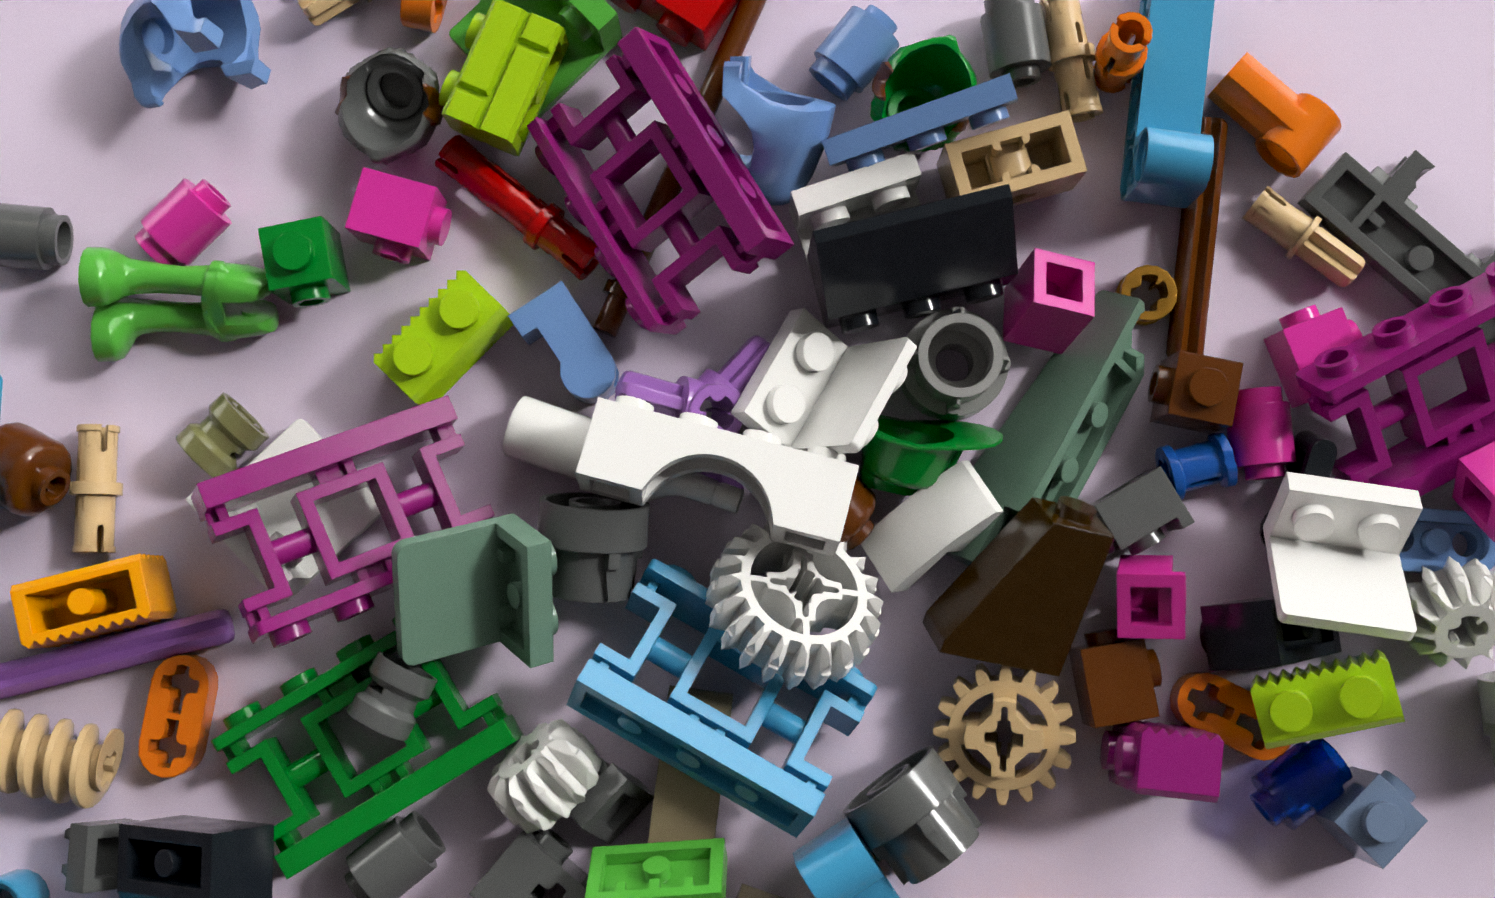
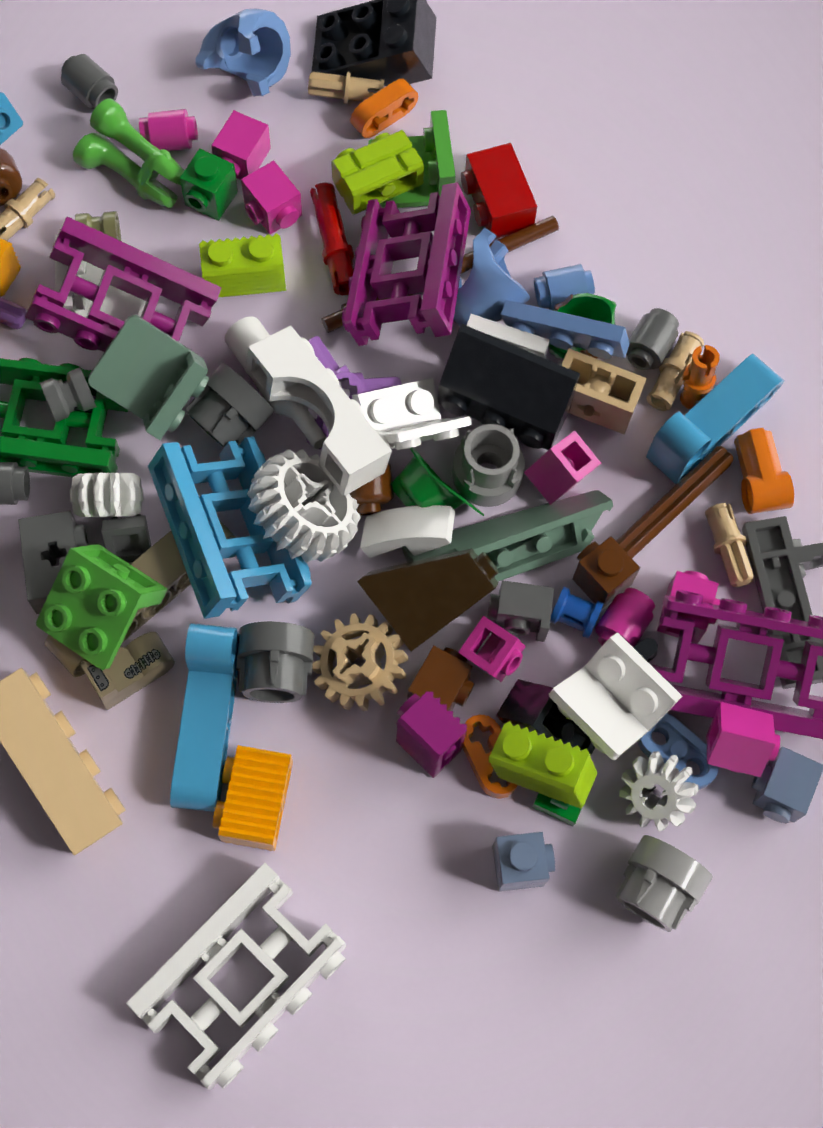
camera: 35 degrees right, 15 degrees down
(300, 174) = (243, 143): none -> dark pink brick
(389, 105) = (310, 146): dark grey hair -> none
(584, 359) = (306, 301): medium blue leg -> none
(1158, 278) = (634, 509): pearl gold bush -> none
(1300, 783) = (496, 815): clear blue brick -> none

